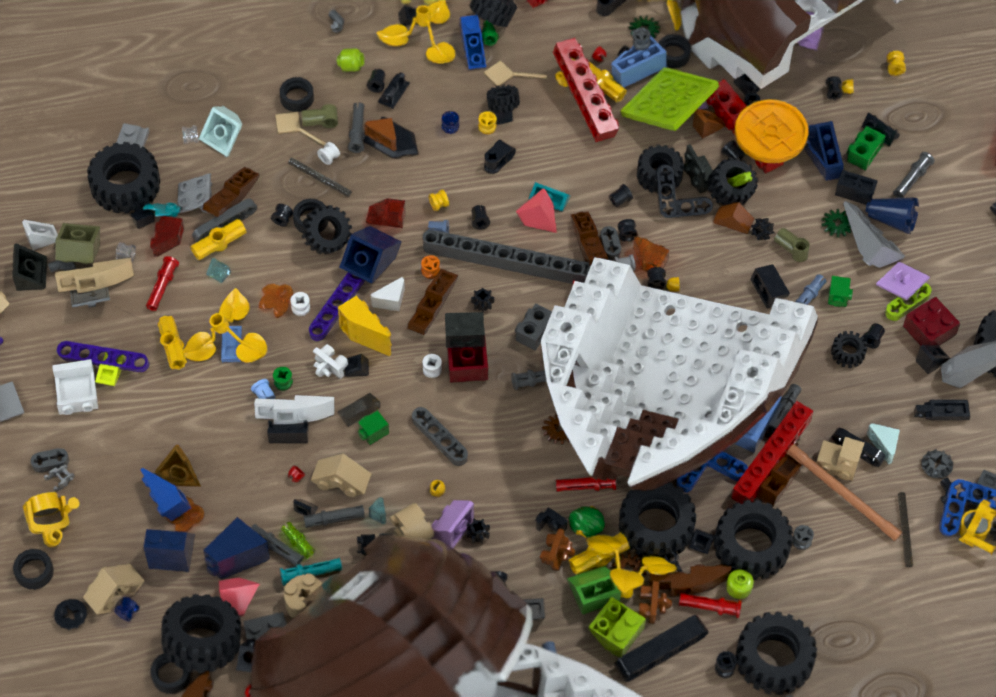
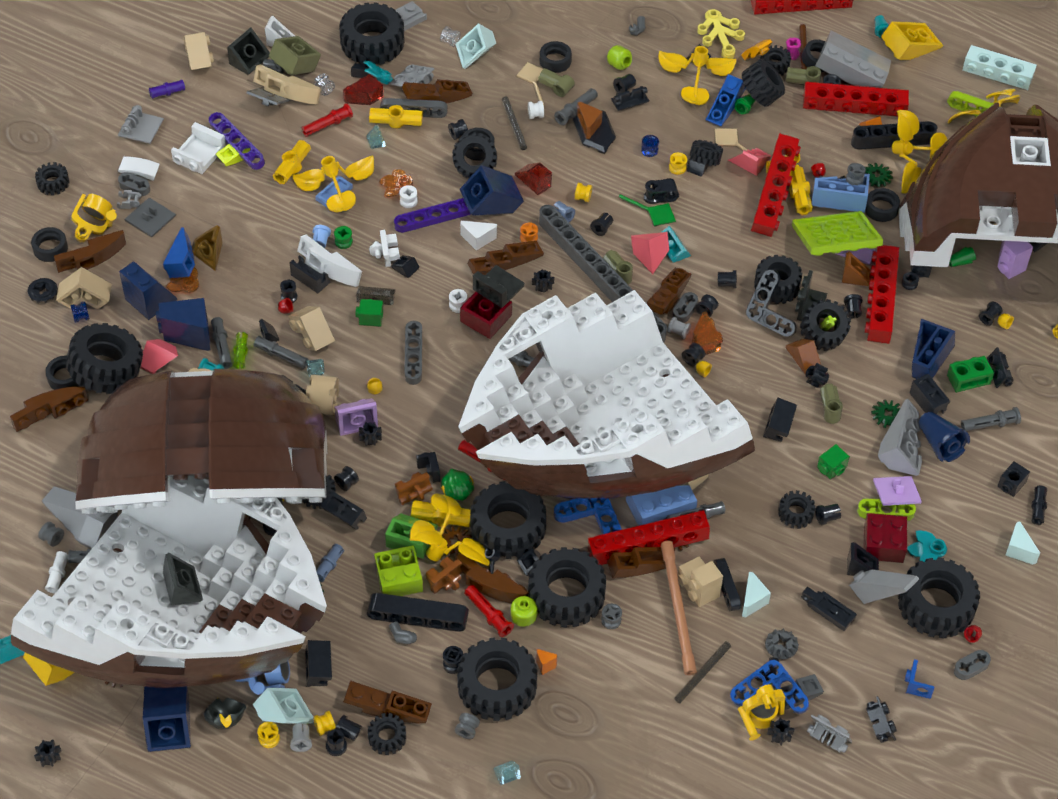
camera: 40 degrees right, 5 degrees down
(38, 442) = (139, 166): none -> white slope
(83, 545) = (98, 251): none -> reddish brown slope
(94, 479) = (150, 217): none -> dark grey piece
(286, 453) = (288, 290): none -> black bush
(364, 326) = (433, 235): yellow slope -> none
(513, 176) = (659, 214): none -> green piece
(529, 243) = (621, 267): none -> olive piece
(540, 81) = (752, 161): none -> coral slope
(666, 677) = (402, 636): none -> dark grey arm
(771, 131) = (895, 306): light orange plate -> none
(792, 608) = (546, 661): none -> orange slope
(811, 290) = (810, 447): sand blue pin -> none
(961, 310) = (925, 546): none -> teal plate
(973, 205) = (1013, 472): none -> black brick

